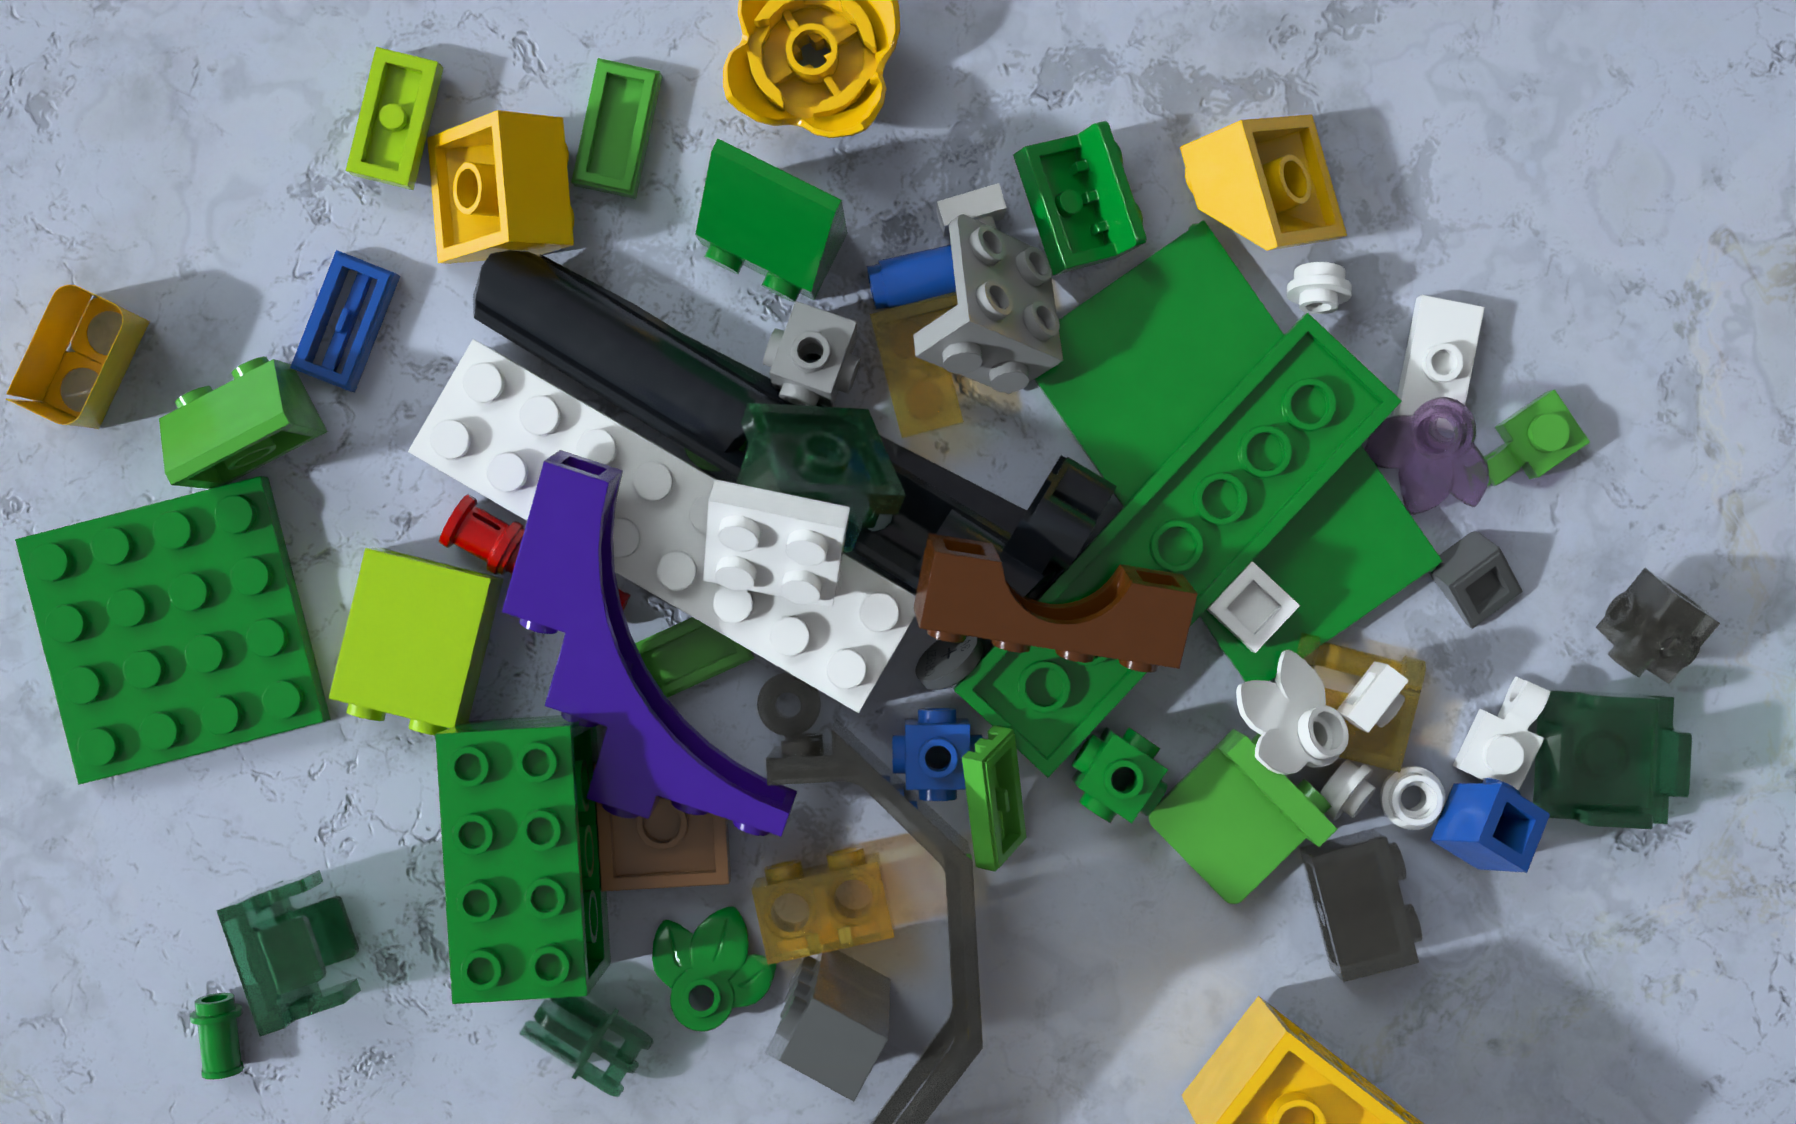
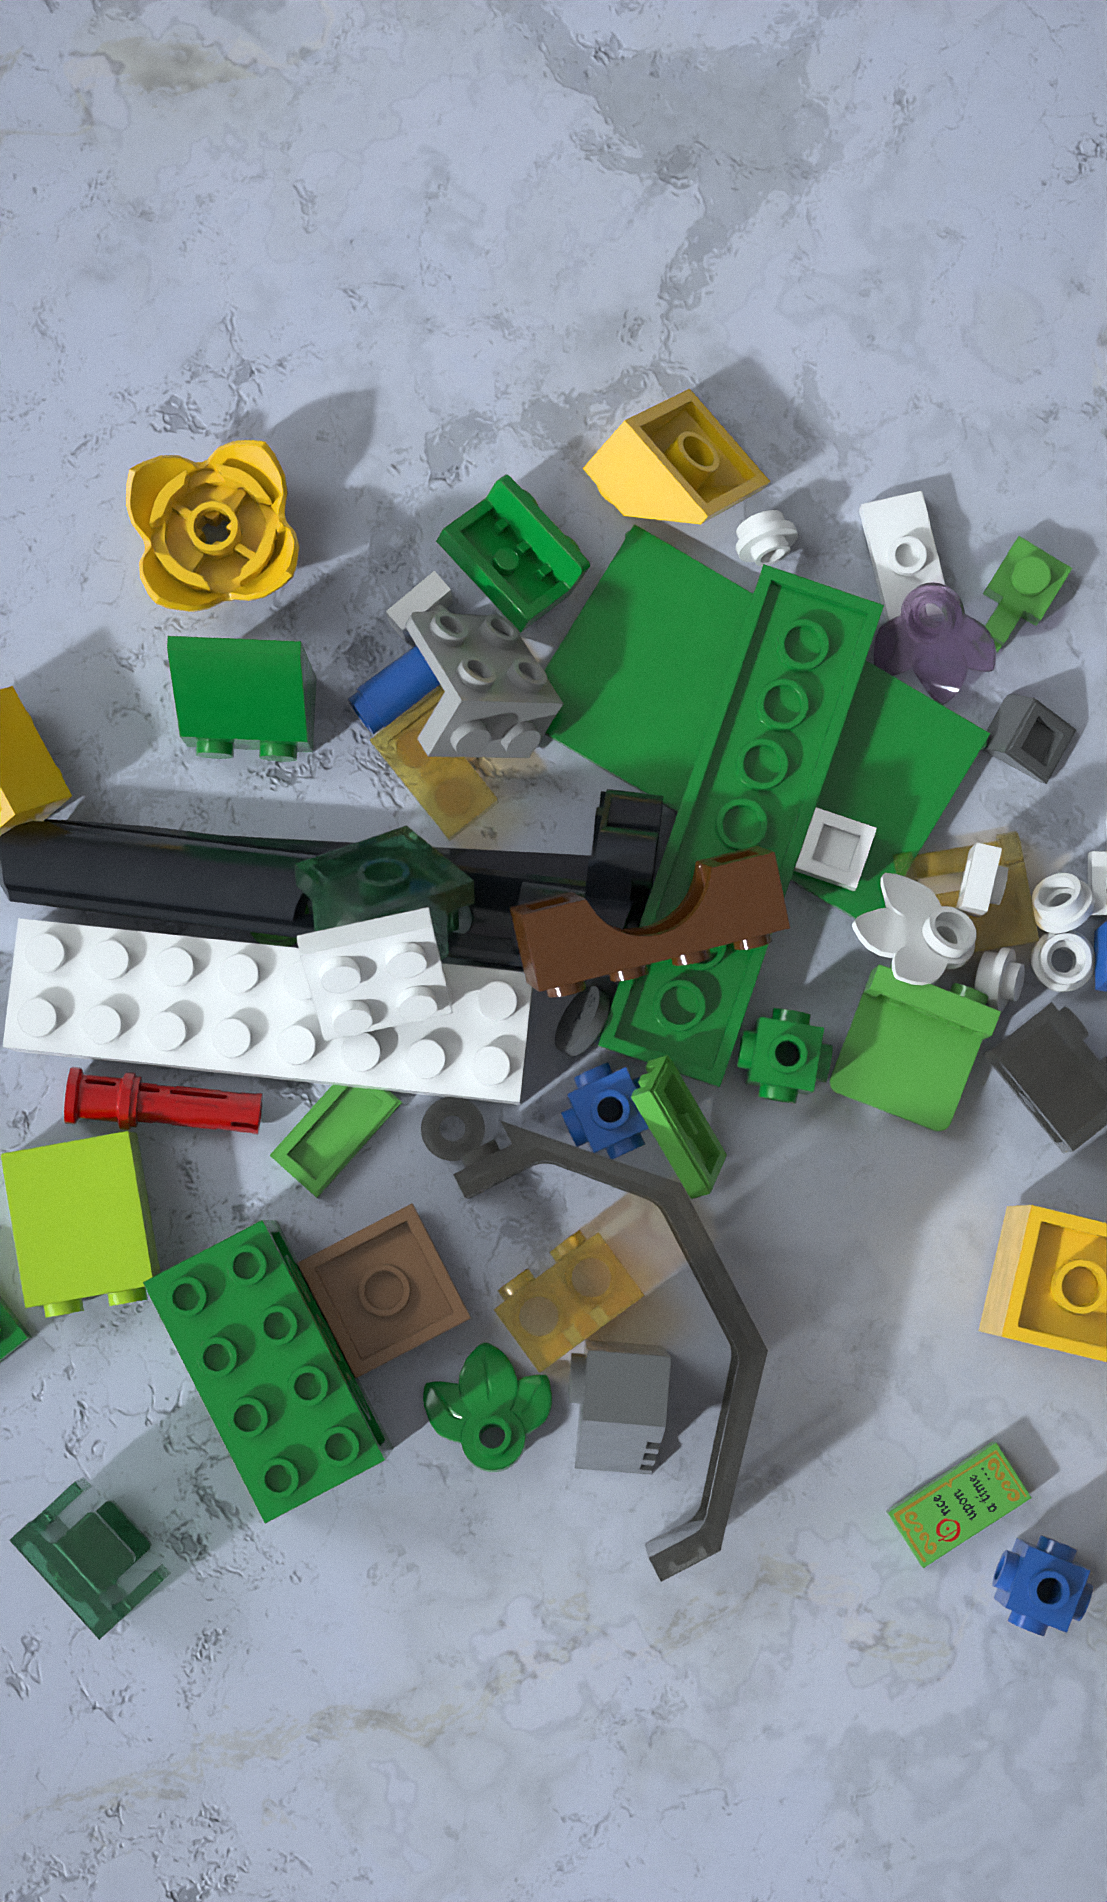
camera: 25 degrees left, 5 degrees down
(218, 1035) = (54, 1679): green pin -> none
(570, 586) = (341, 1220): dark purple arch -> none
(574, 1030) = (406, 1524): clear green arm -> none
(616, 128) = (64, 676): bright green tile -> none
(808, 336) = (334, 799): light grey brick -> none
(1440, 735) = (1062, 903): none -> white plate

